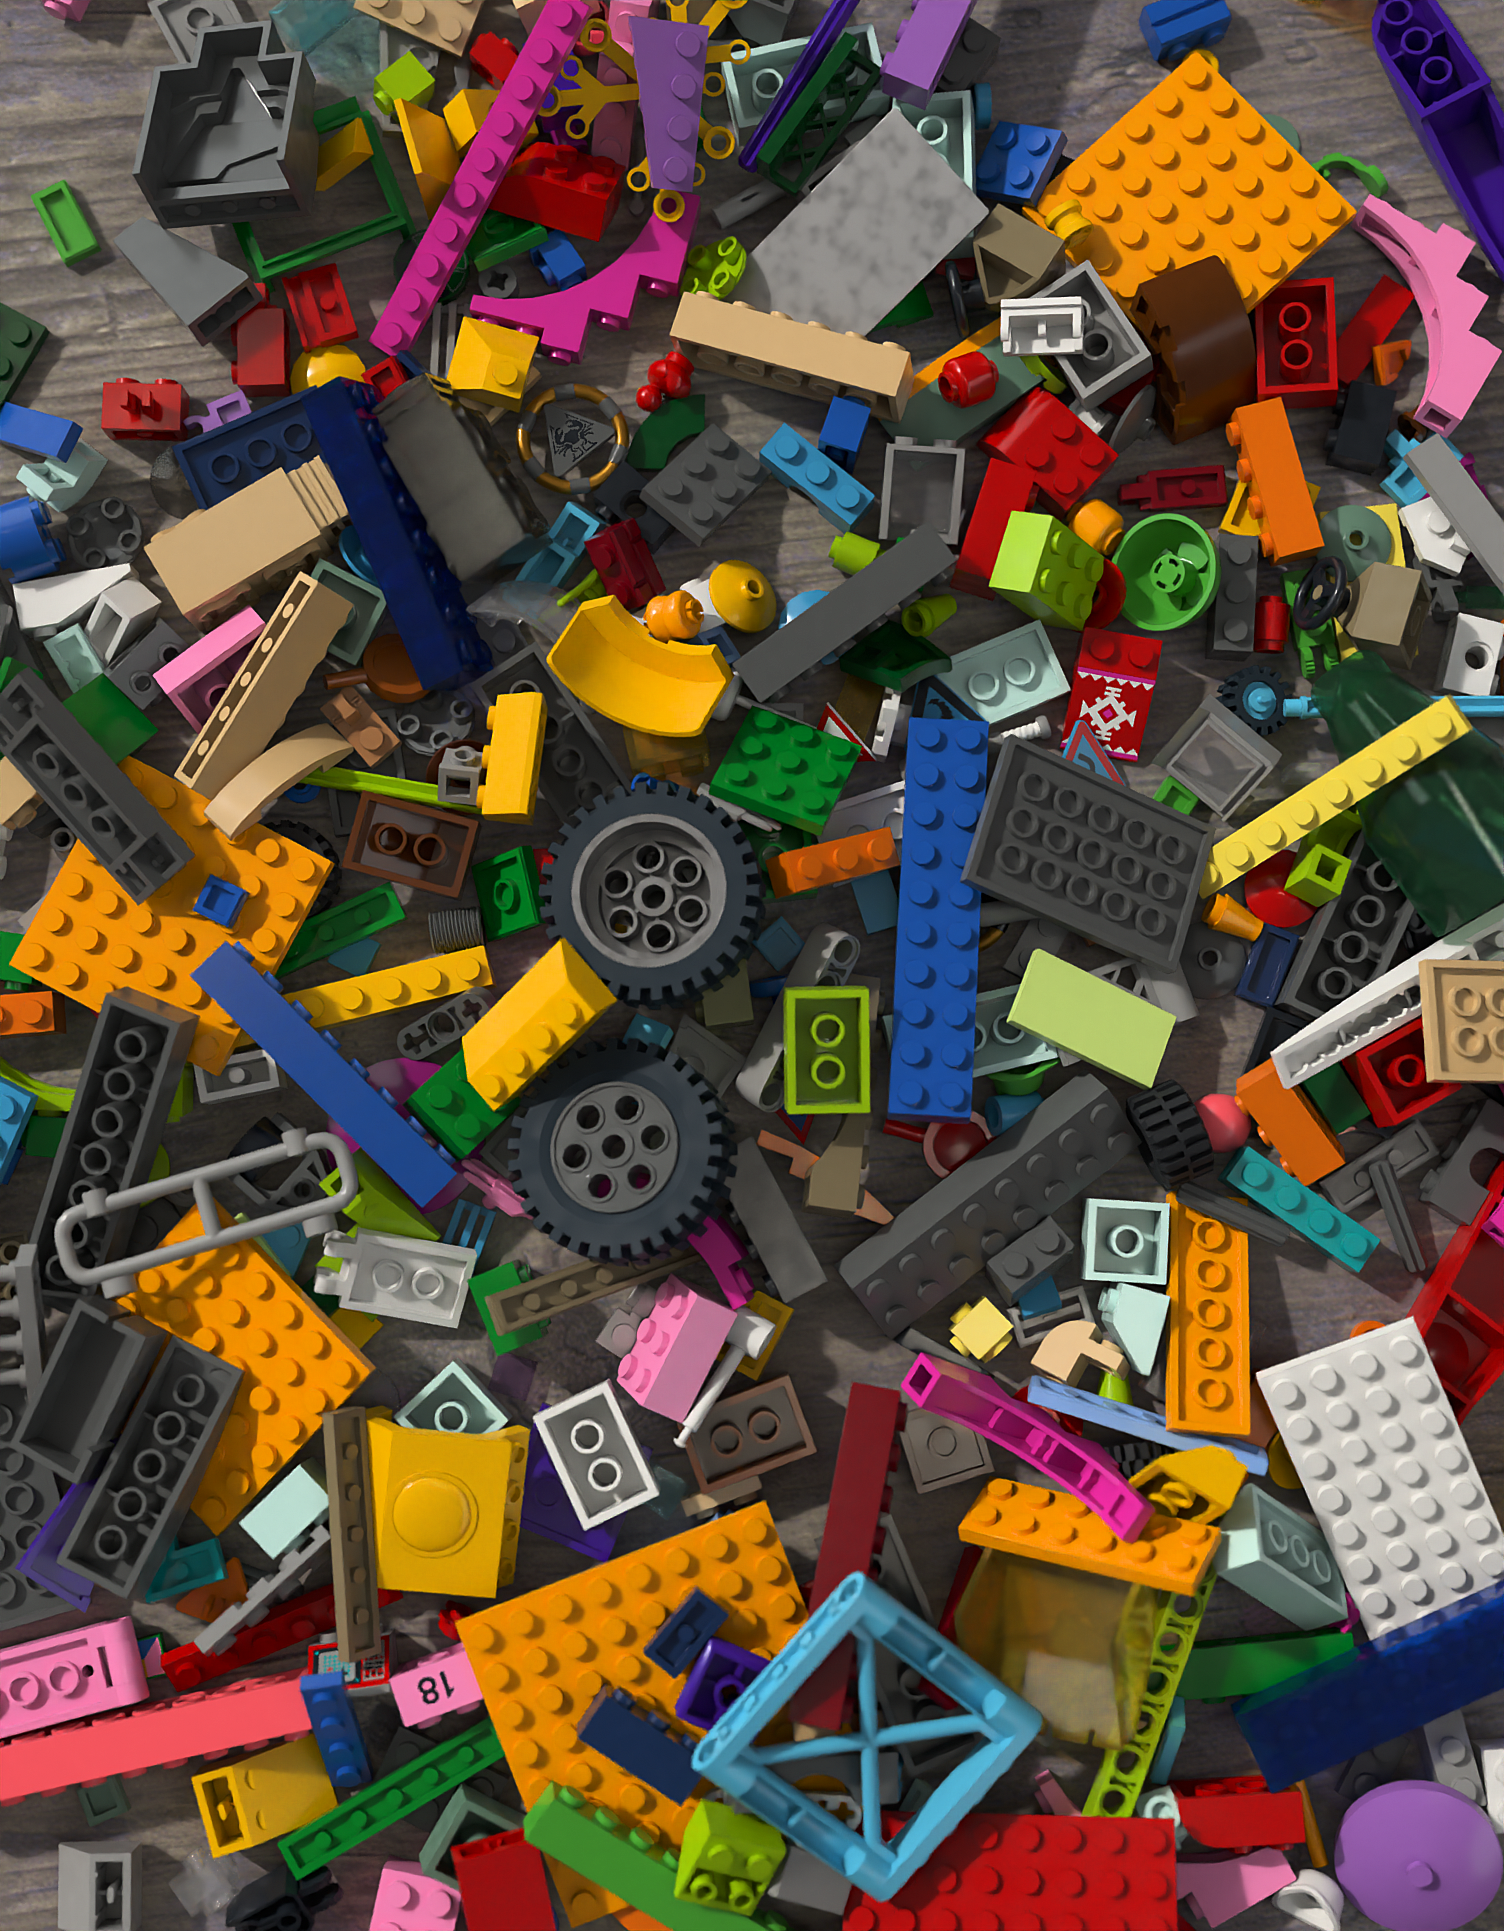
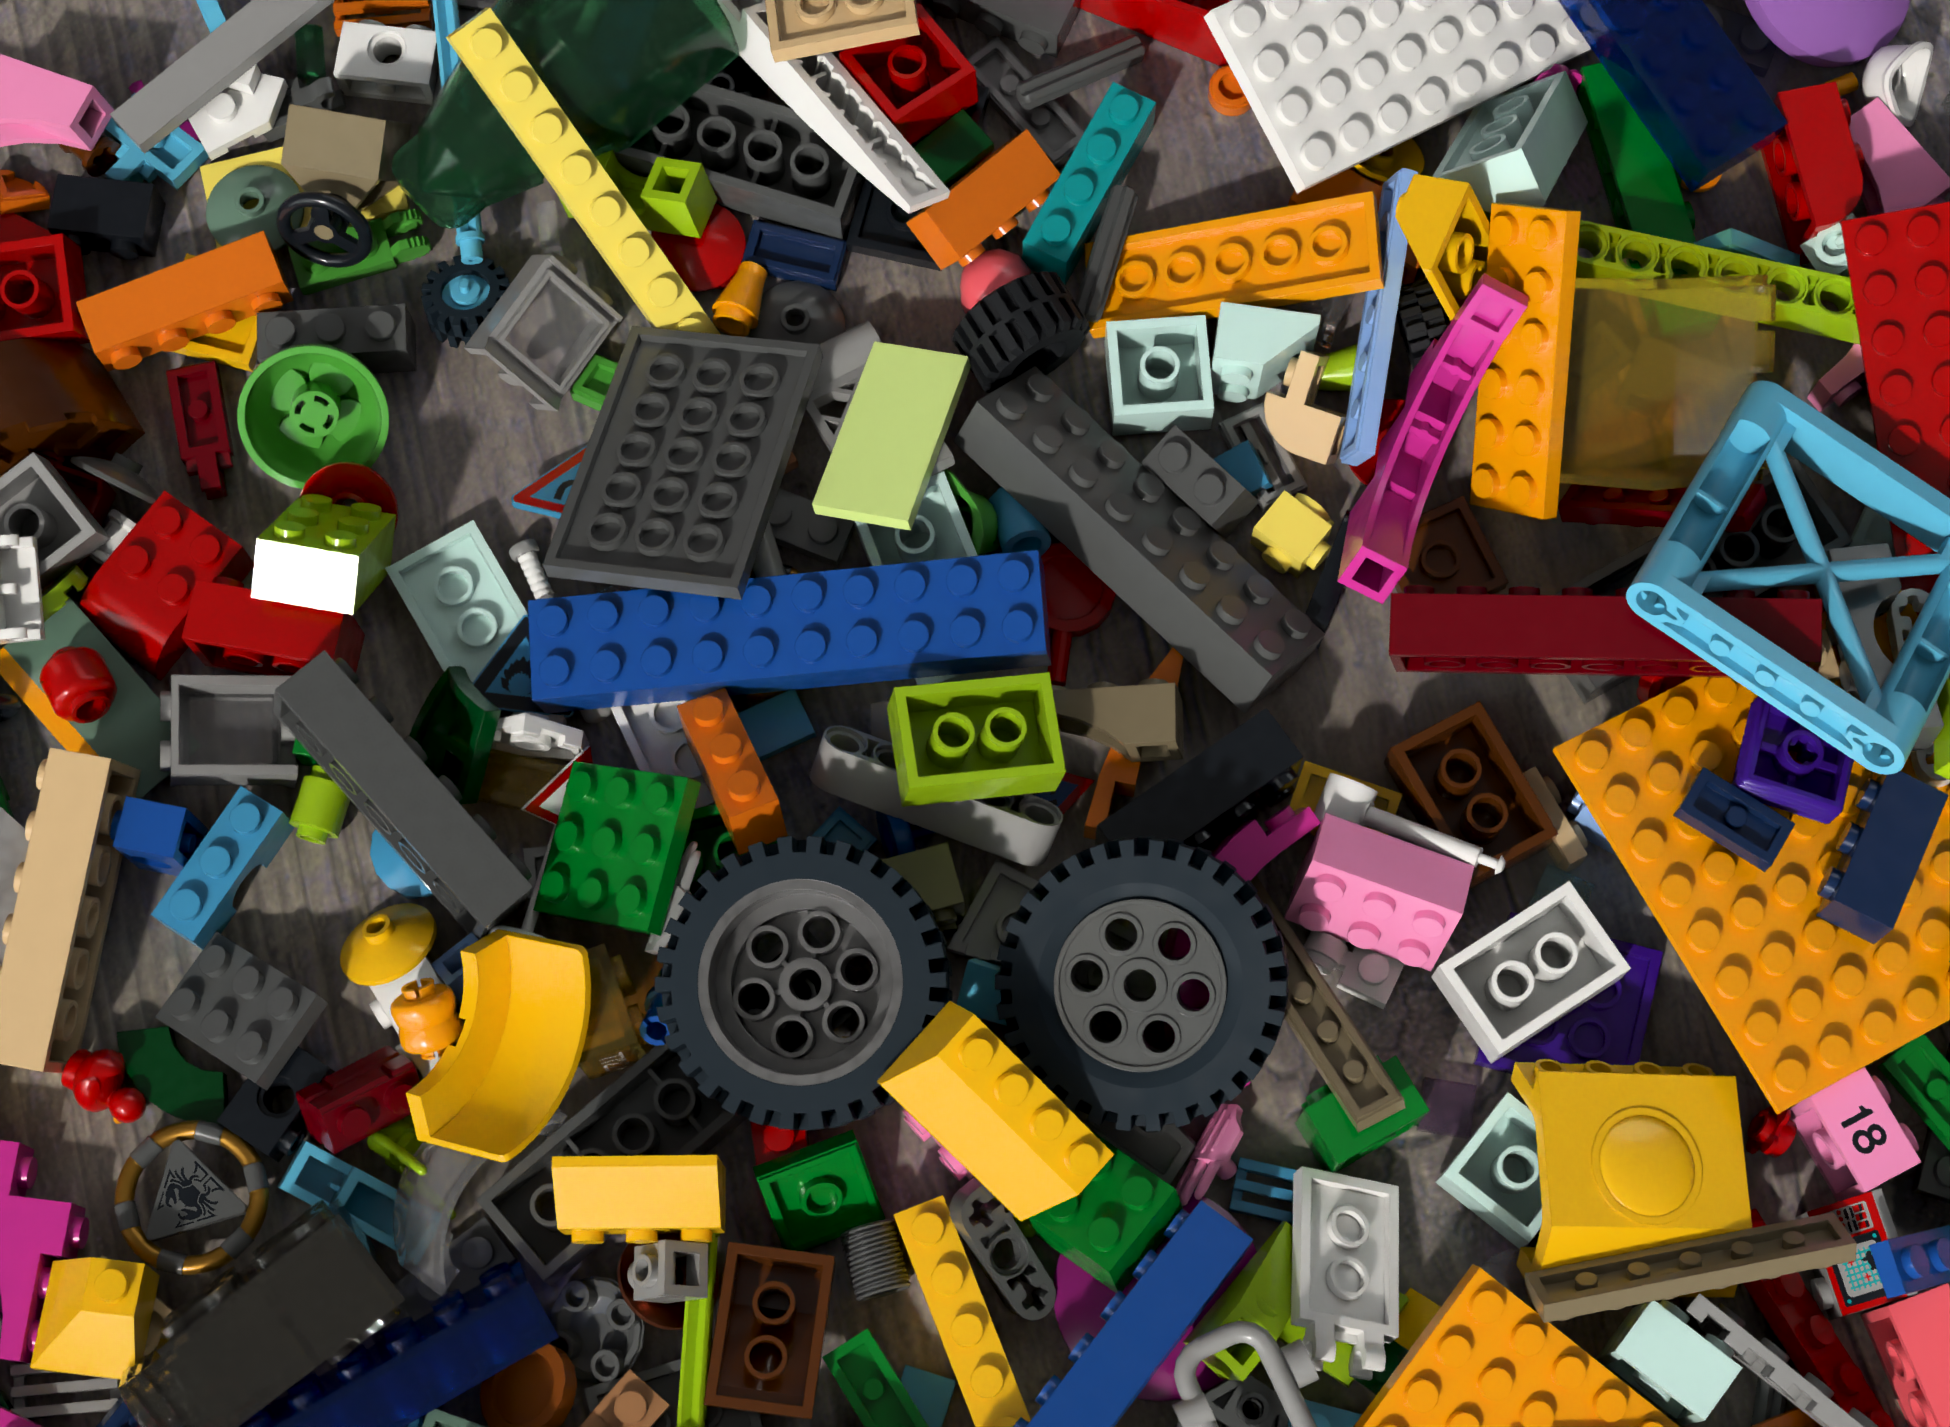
camera: 90 degrees left, 10 degrees down
(928, 614) = (400, 702): lime cone -> none
(1097, 525) = (254, 509): light orange head -> none
(1112, 689) = (467, 471): red slope -> none
(1271, 625) = (366, 289): red brick -> none

